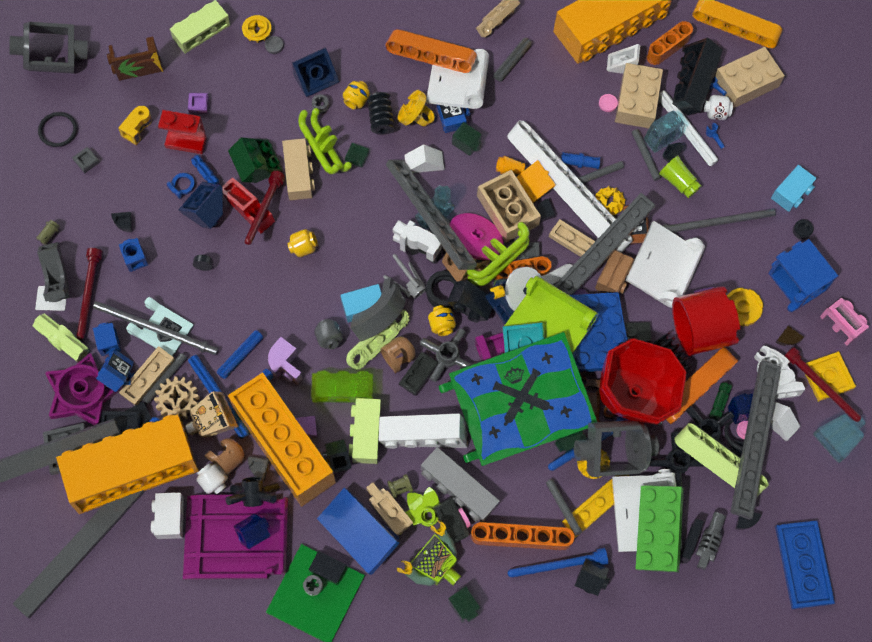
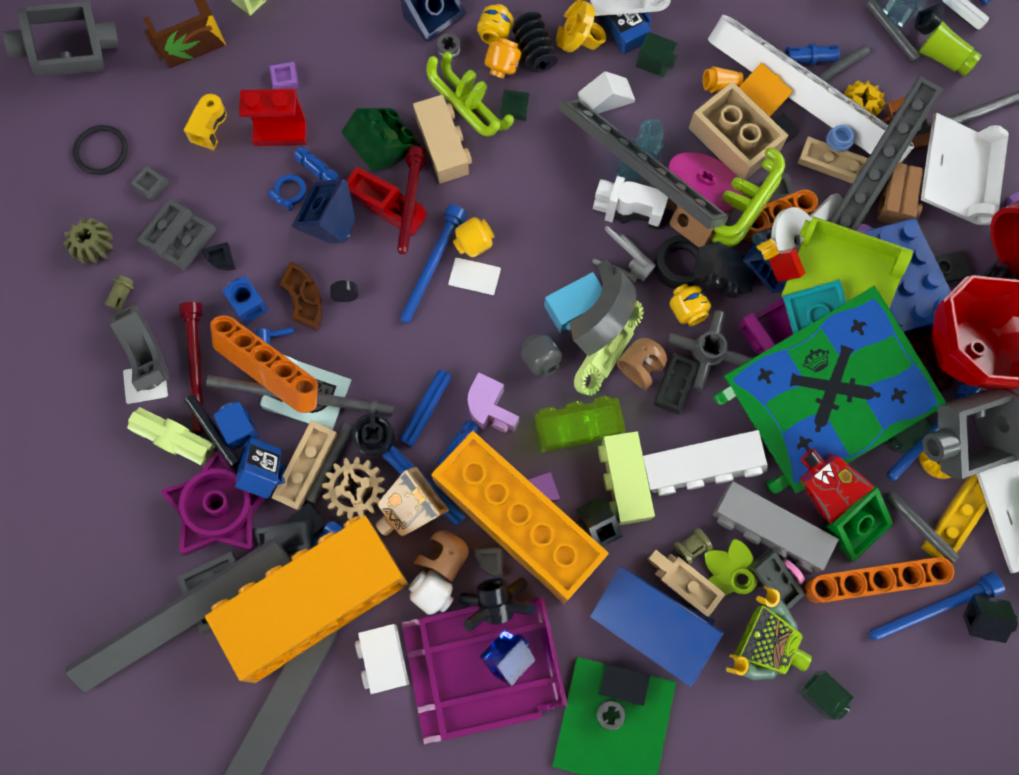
camera: 10 degrees left, 5 degrees up
(35, 192) = (88, 240): none -> olive gear
(89, 339) = (212, 431): none -> black bar
(96, 199) = (176, 234): none -> dark grey slope
(135, 301) = (264, 364): none -> orange beam
(139, 282) = (266, 334): none -> blue hand
(175, 260) = (305, 296): none -> reddish brown tile
(198, 364) = (373, 435): none -> black wheel
(292, 226) = (454, 217): none -> blue piece
(297, 270) = (474, 276): none -> white sticker
(355, 119) = (502, 57): none -> light orange head
(505, 462) = (832, 484): none -> red torso
(510, 305) = (787, 265): none -> red tile
(520, 495) = (860, 525): none -> green slope
(580, 225) = (840, 138): none -> medium blue plate

